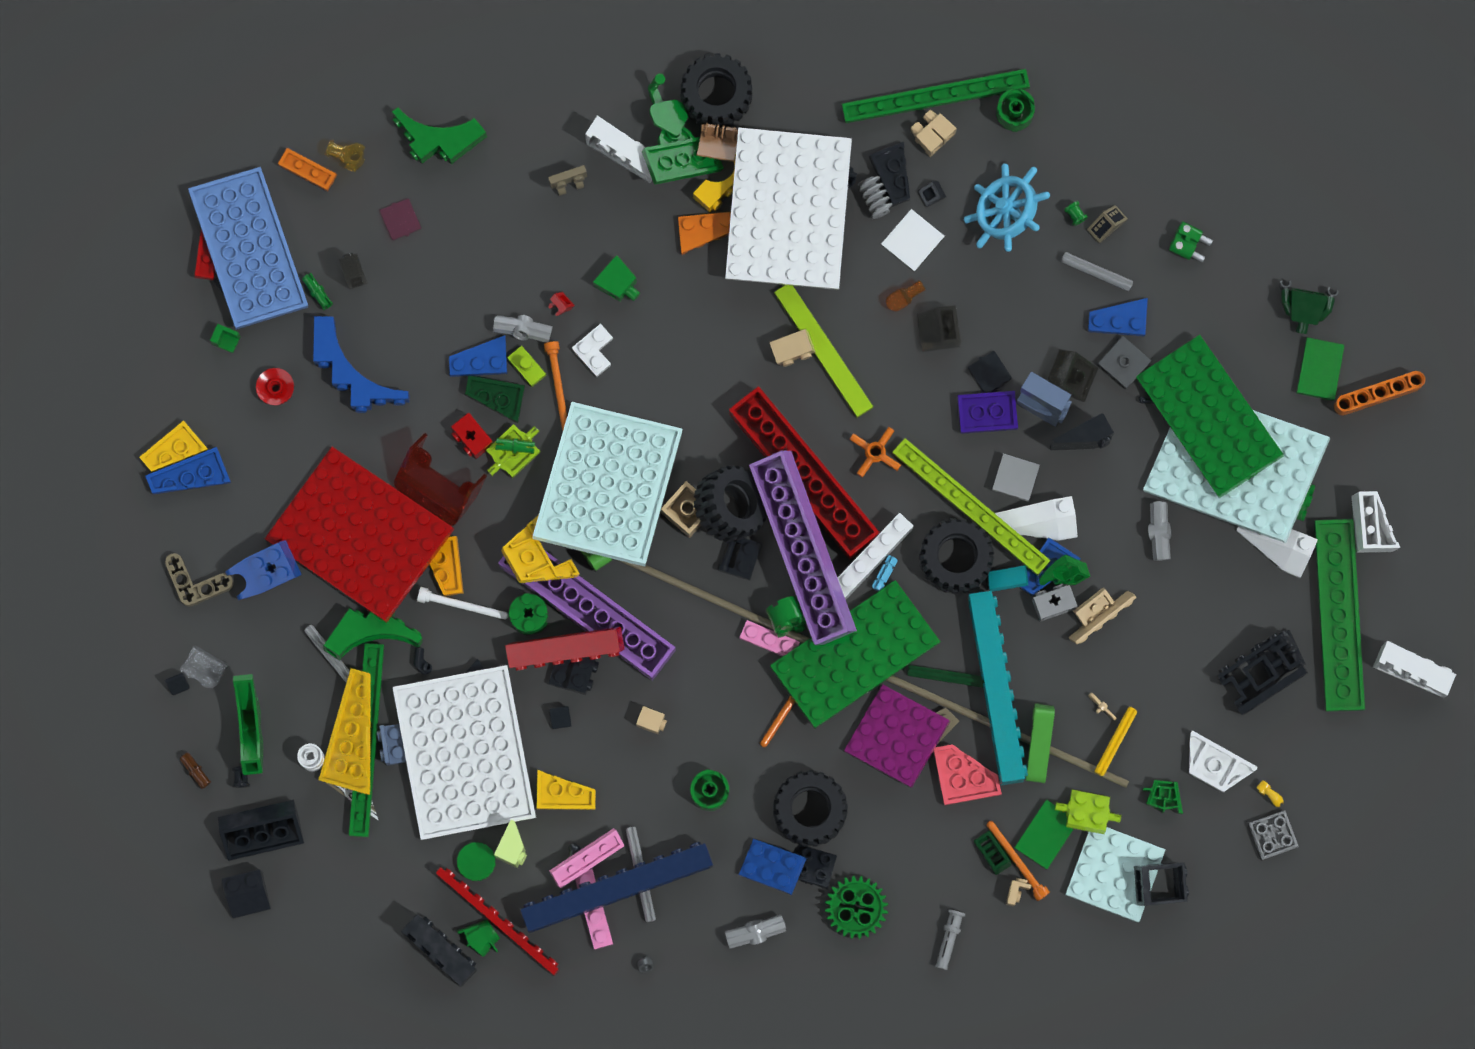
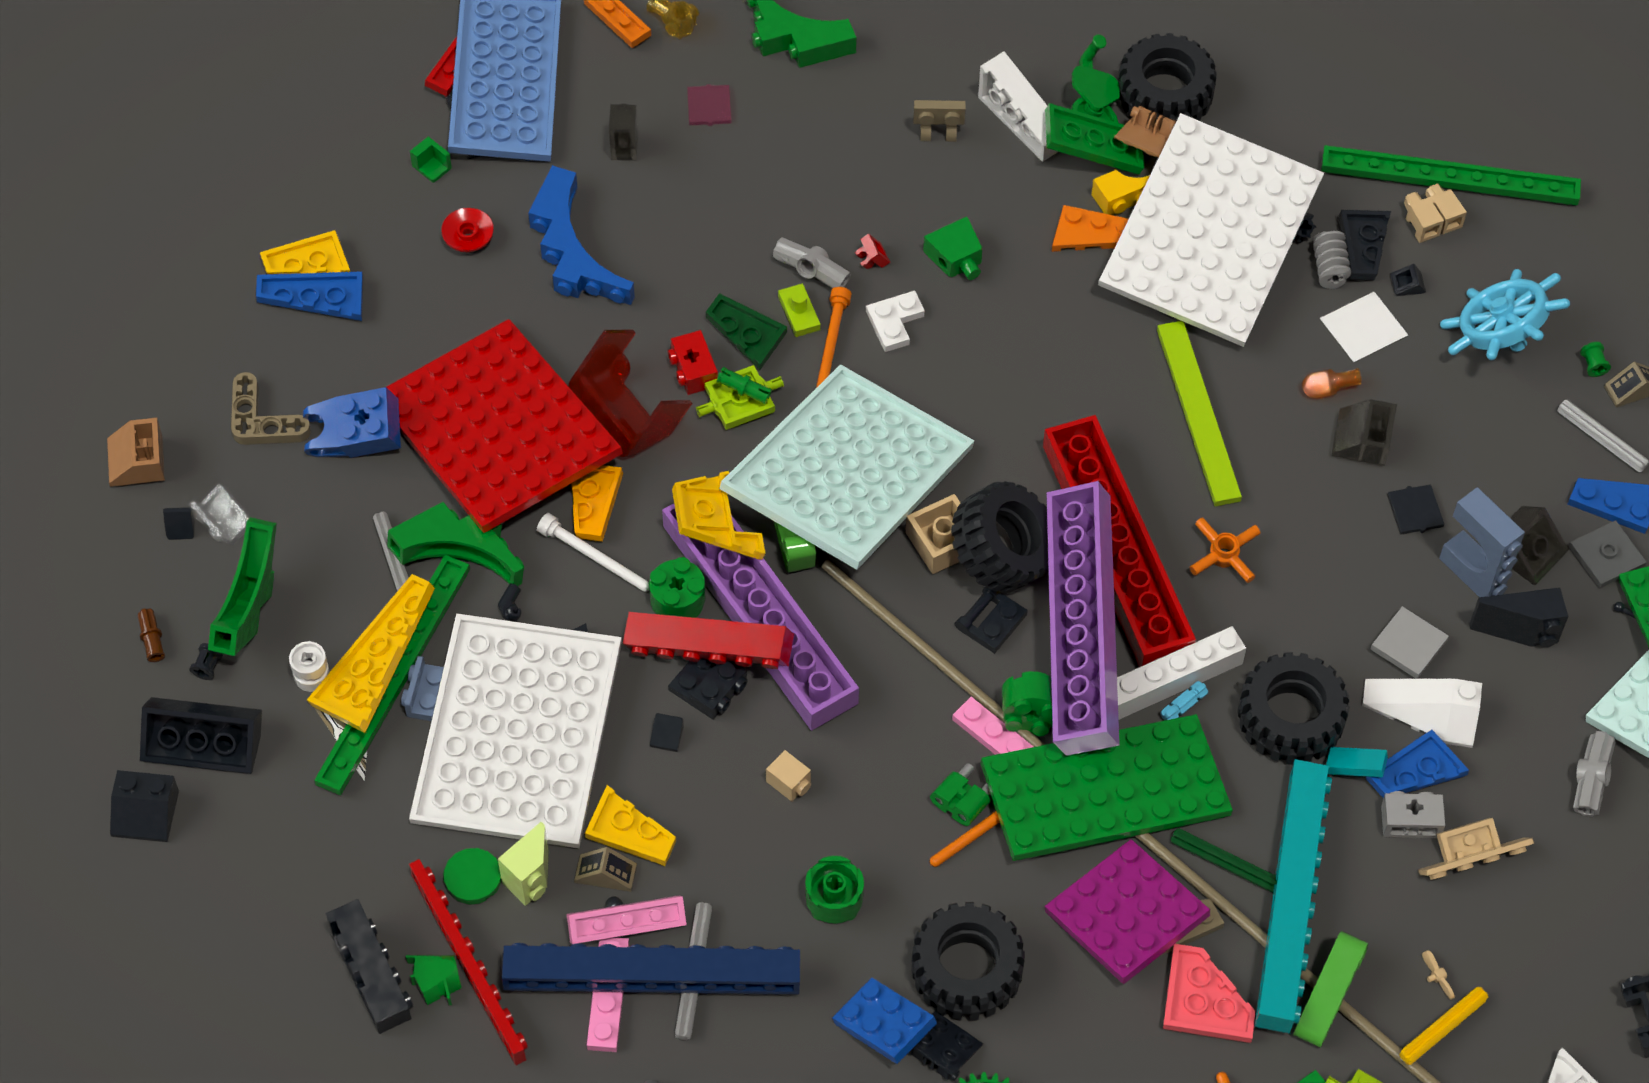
camera: 20 degrees right, 20 degrees down
(125, 644) = (136, 453): none -> medium nougat slope
(317, 291) = (569, 146): green pin -> none
(483, 359) = (747, 285): blue wing -> none
(559, 827) = (606, 869): none -> dark tan slope
(765, 695) = (960, 798): none -> green piece
(792, 348) = (1158, 391): tan brick -> none
(971, 507) = (1333, 651): lime plate -> none
(987, 412) = (1397, 552): dark purple plate -> none
(1011, 100) = (1552, 217): green brick -> none
(1066, 571) = (1442, 775): green slope -> none

